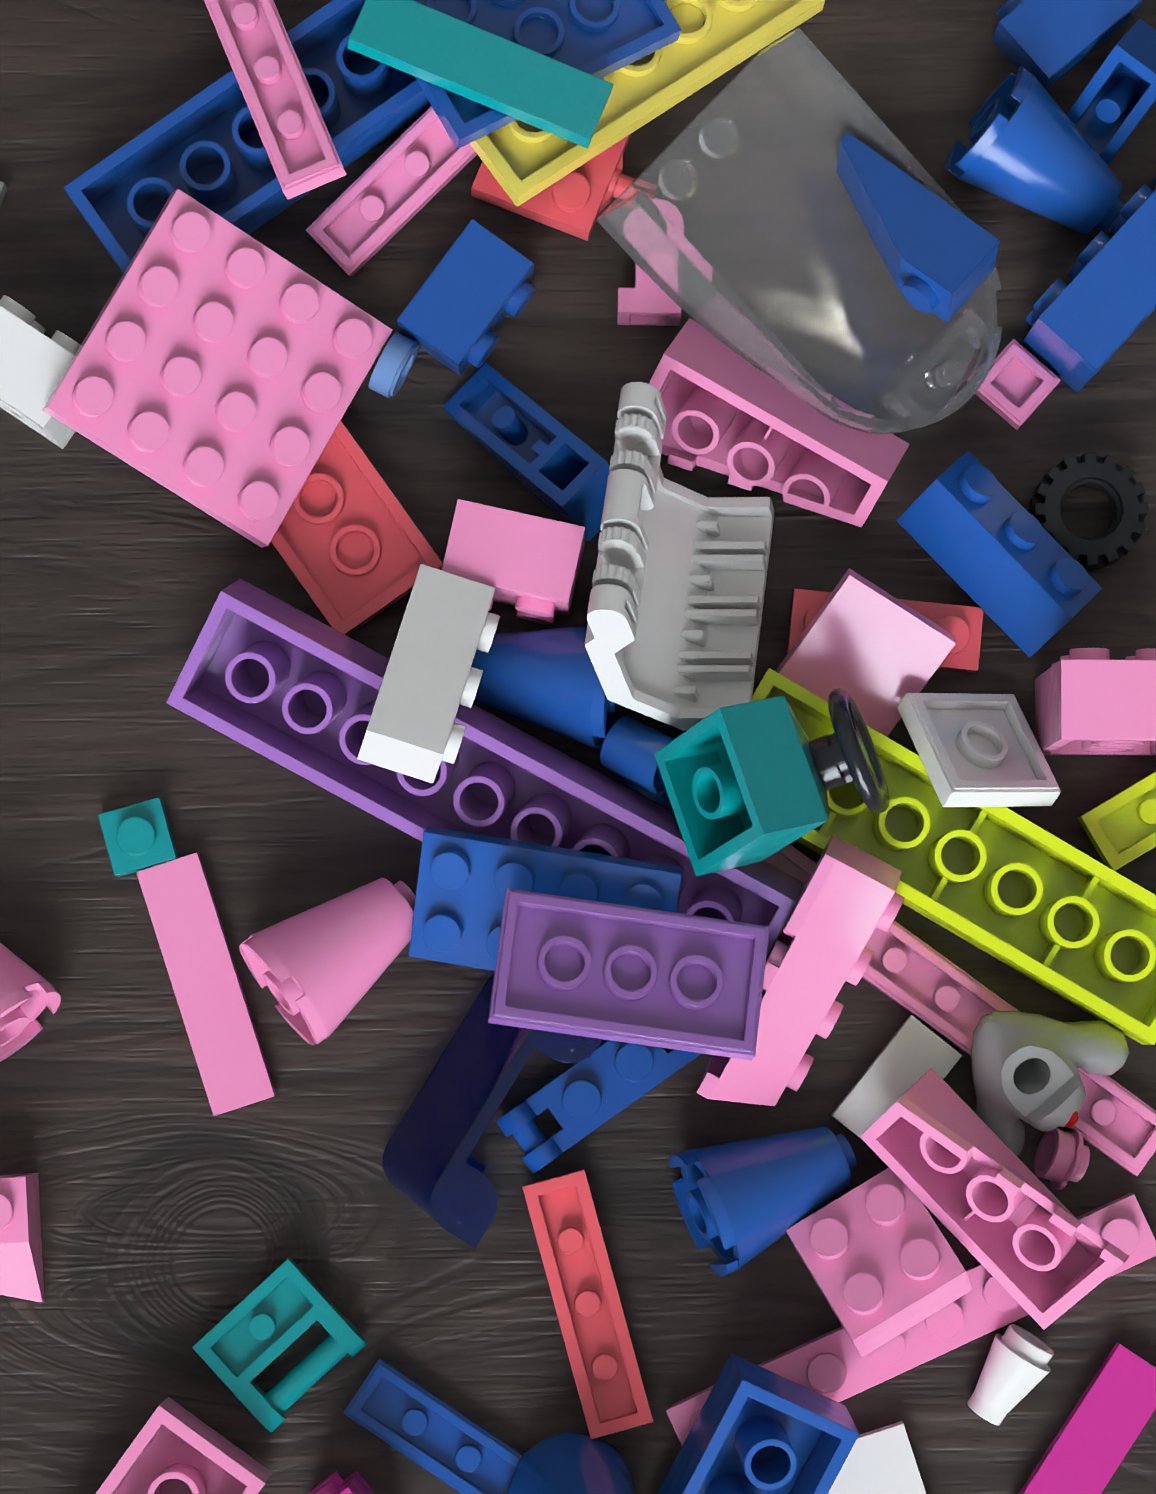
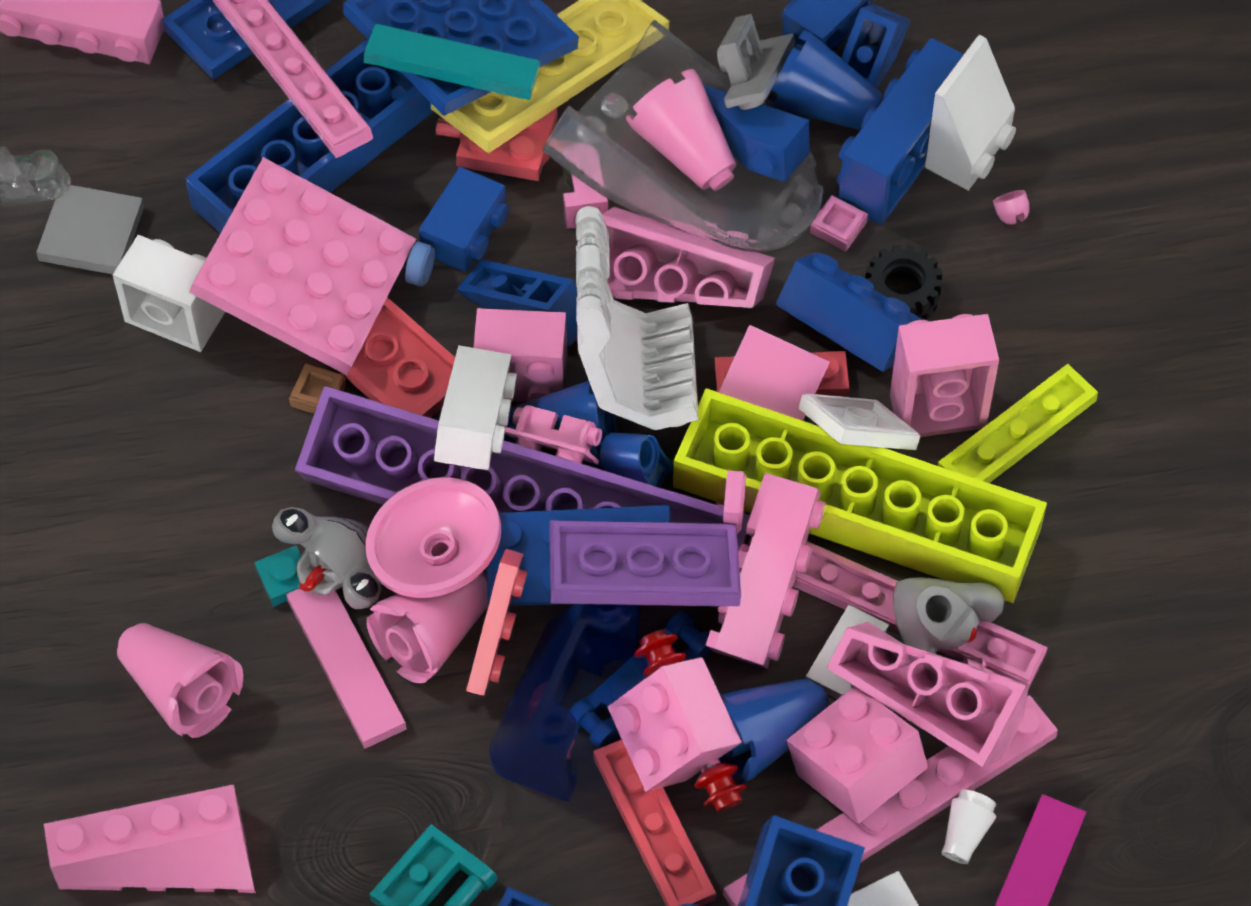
camera: 10 degrees left, 25 degrees down
(208, 834) = (331, 556): none -> light grey head
(217, 550) = (311, 384): none -> medium nougat tile
(313, 837) = (421, 525): none -> bright pink dish
(389, 193) = (405, 165): bright pink tile -> none
(417, 995) = (497, 623): none -> coral plate
(558, 736) = (537, 432): none -> bright pink hinge
(639, 1192) = (678, 724): none -> bright pink brick
(756, 783) = (705, 431): teal piece -> none
(773, 892) = (734, 499): none -> bright pink tile
(816, 220) = (685, 130): none -> bright pink cone
(936, 117) = (751, 62): none -> light grey bracket

